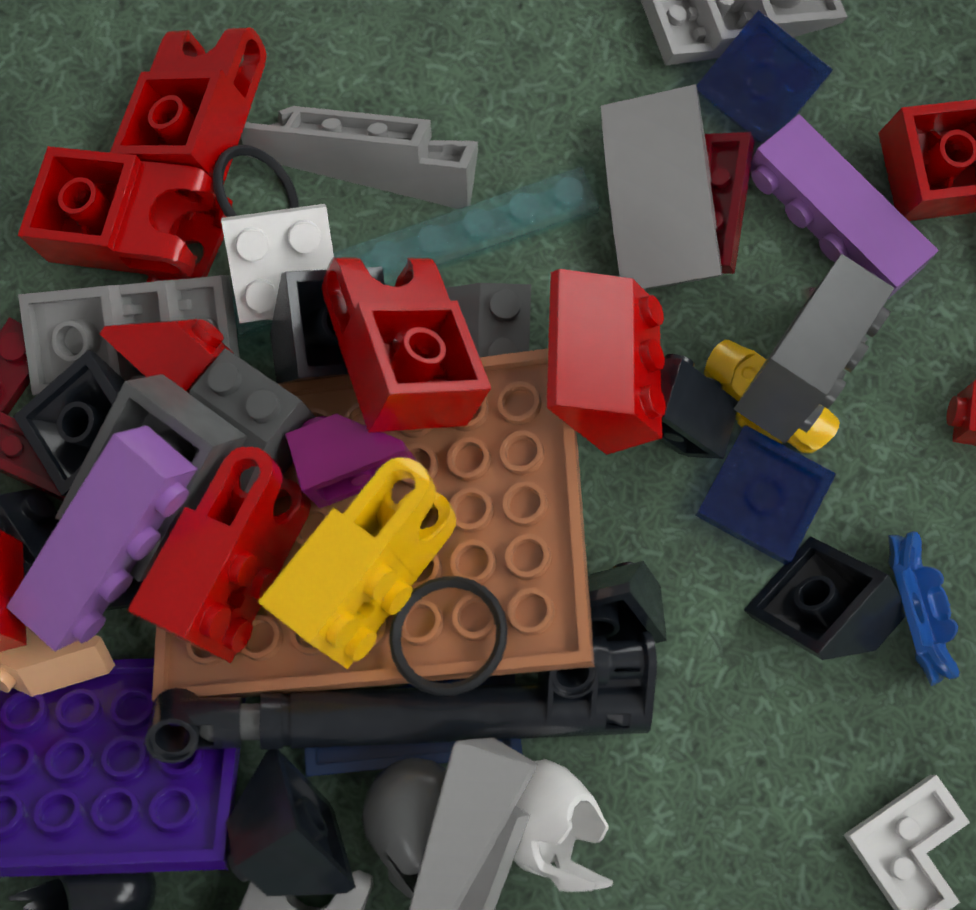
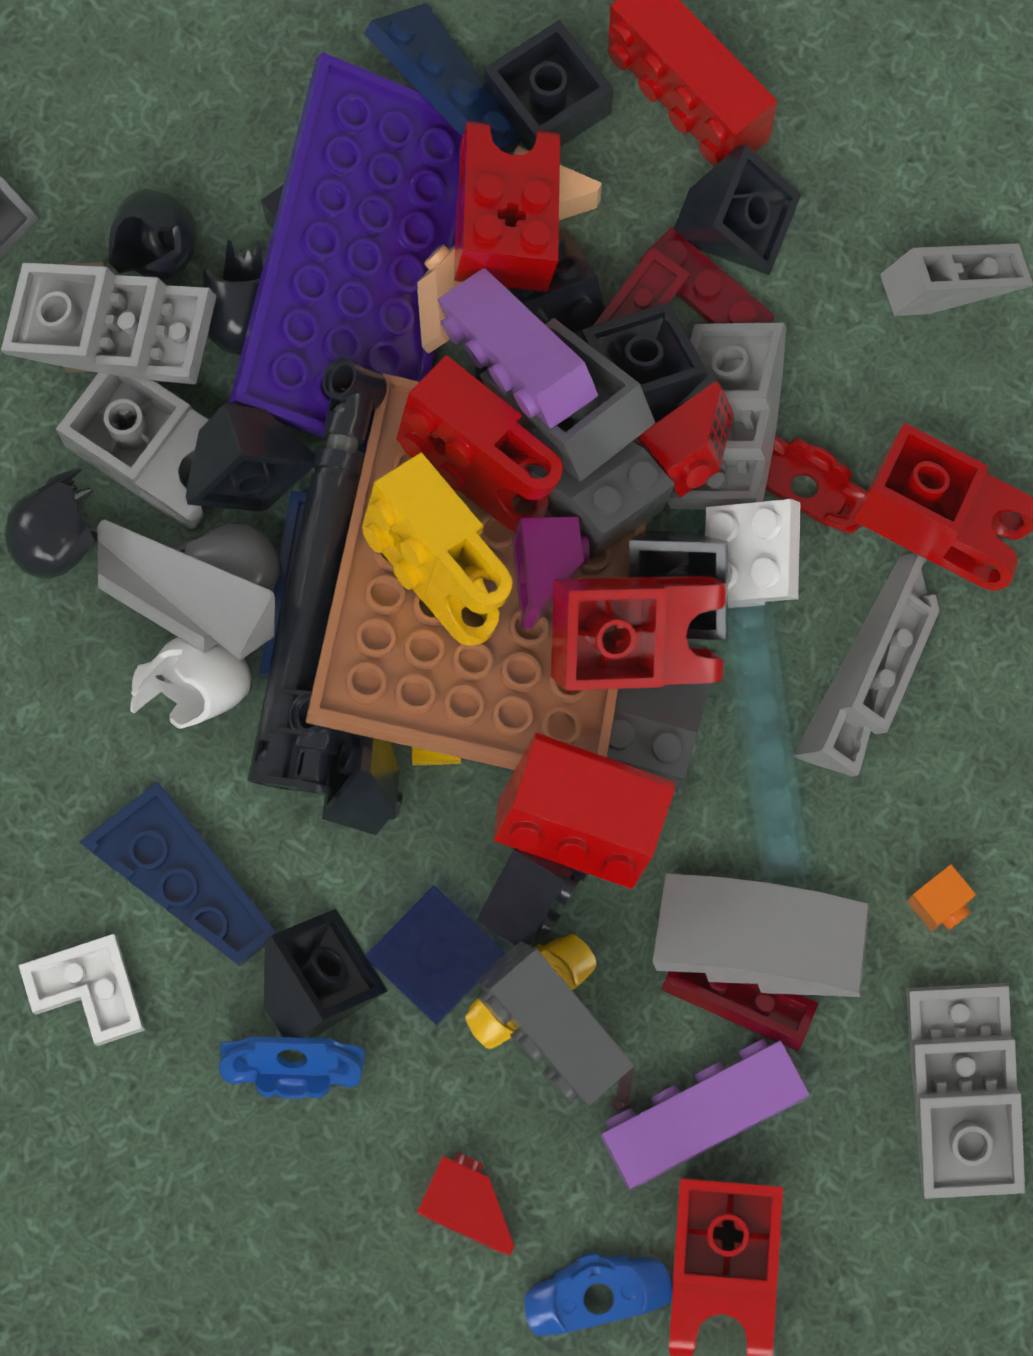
camera: 105 degrees right, 0 degrees up
(114, 211) = (848, 417): red brick -> none
(257, 153) = (861, 516): black tyre -> none
(484, 672) = (333, 641): black tyre -> none
(575, 47) = (943, 900): none -> orange plate
(750, 796) = (176, 868): none -> dark blue wing
(763, 78) = (862, 1077): clear blue plate -> none

